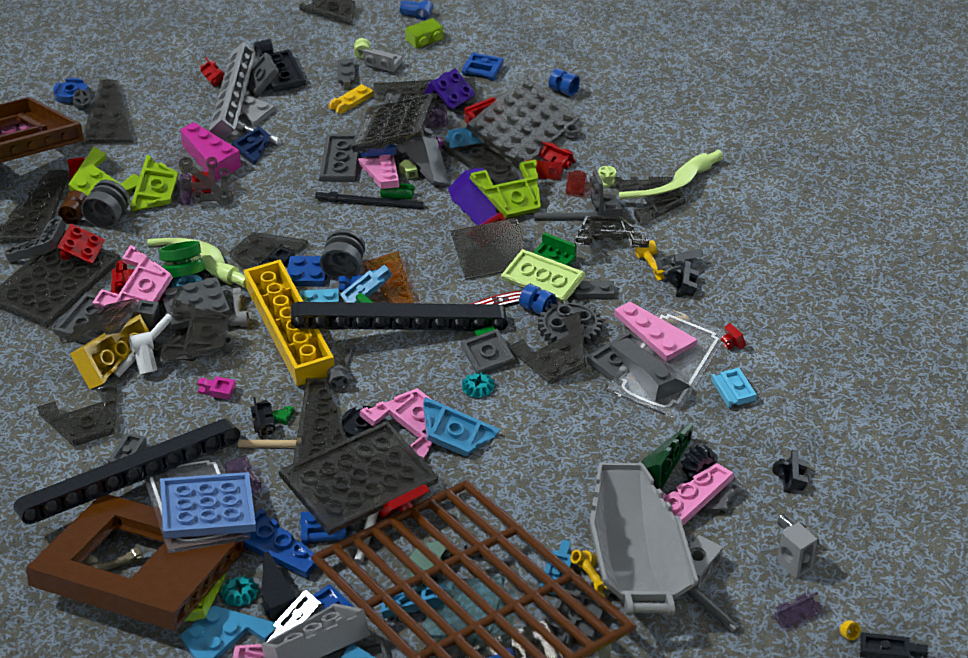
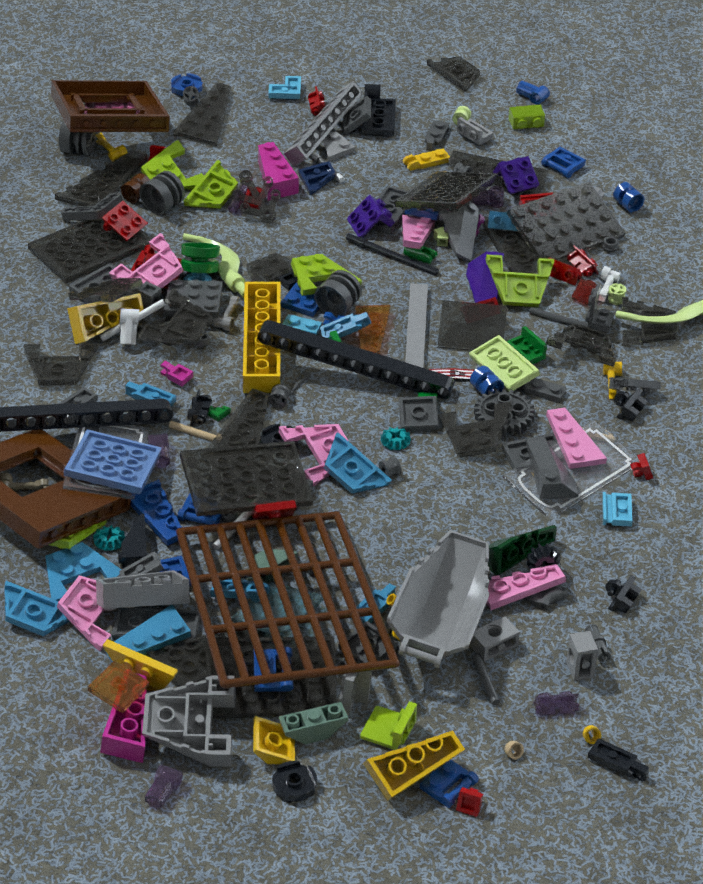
camera: 20 degrees right, 0 degrees up
(30, 178) = (114, 153): none -> yellow brick
(178, 67) = (289, 90): none -> medium azure plate
(197, 418) = (146, 391): none -> dark azure hinge
(302, 237) = (313, 269): none -> lime wing
(327, 168) = (368, 214): none -> dark purple bracket
(433, 263) = (416, 324): none -> light grey tile
(492, 415) = (390, 467): none -> dark grey wheel
(589, 161) = (609, 276): none -> white brick

